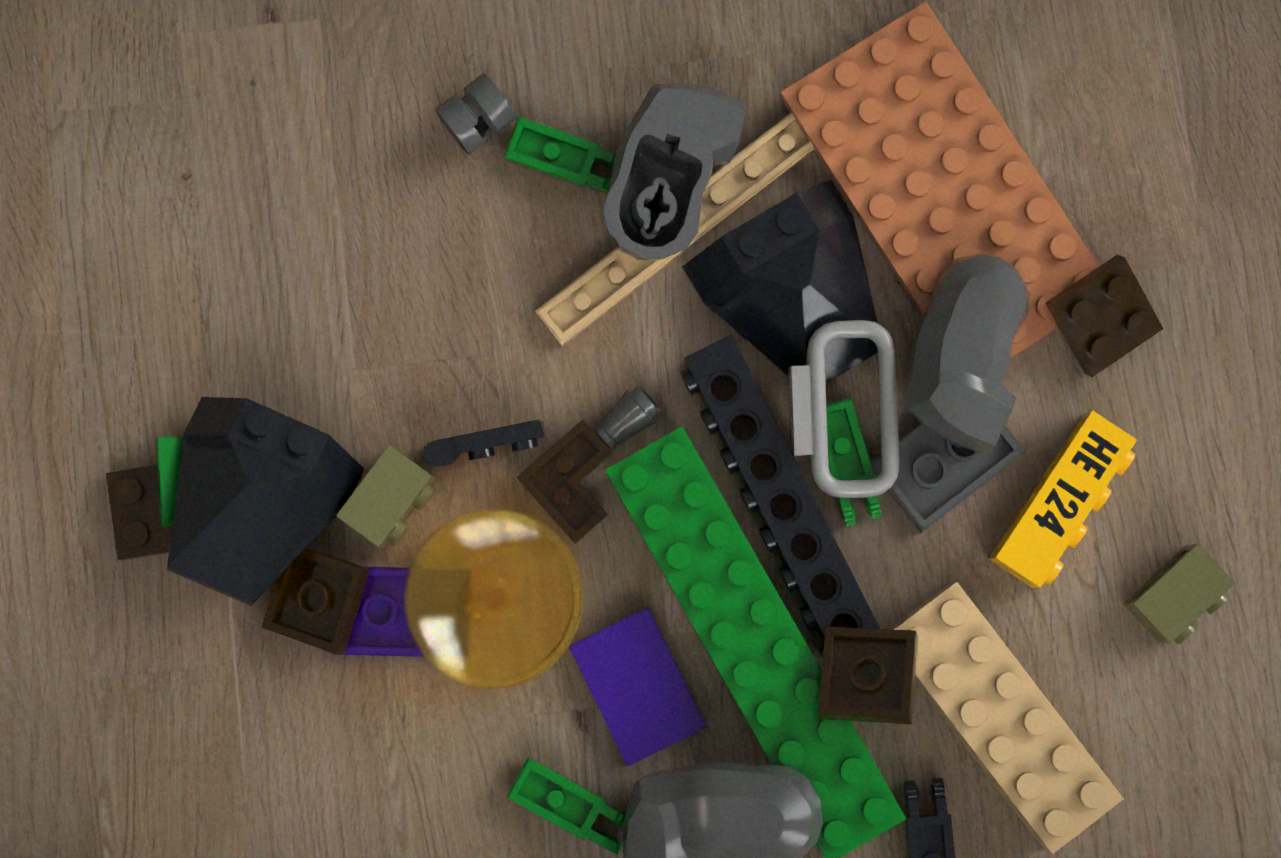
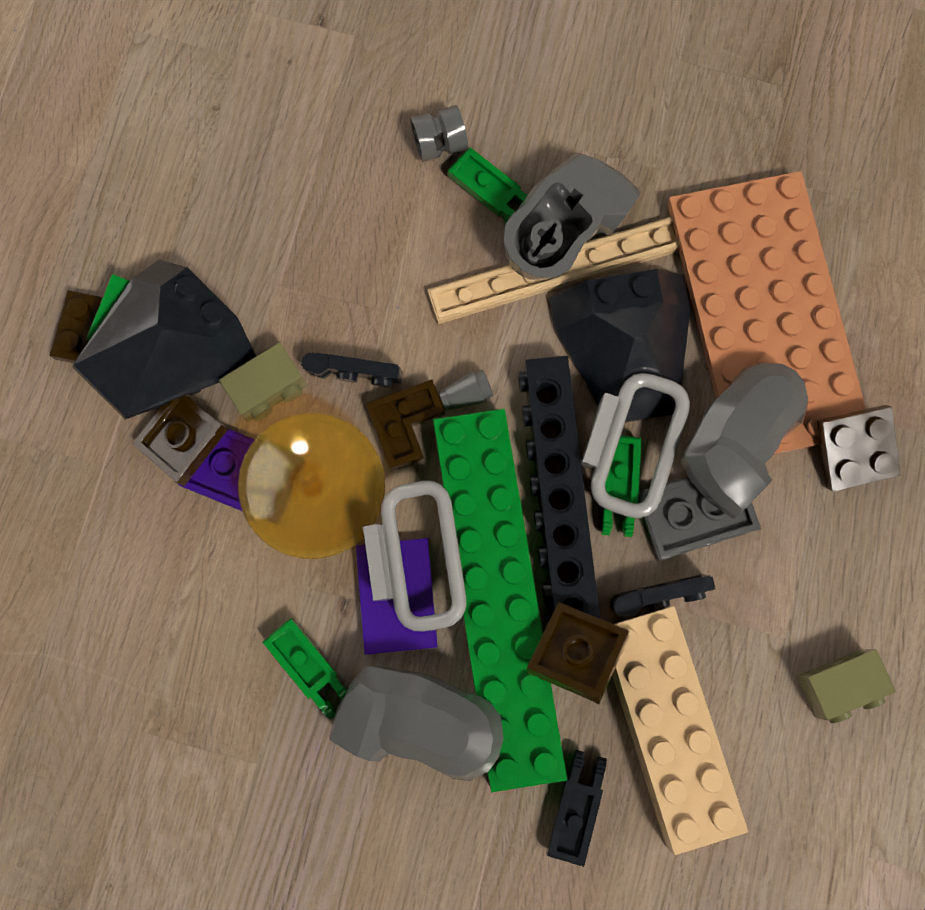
camera: 20 degrees right, 5 degrees down
(616, 656) = (386, 561): none -> light grey bar
(937, 571) = (659, 595): none -> black hinge
(1063, 500) = (779, 576): yellow brick -> none

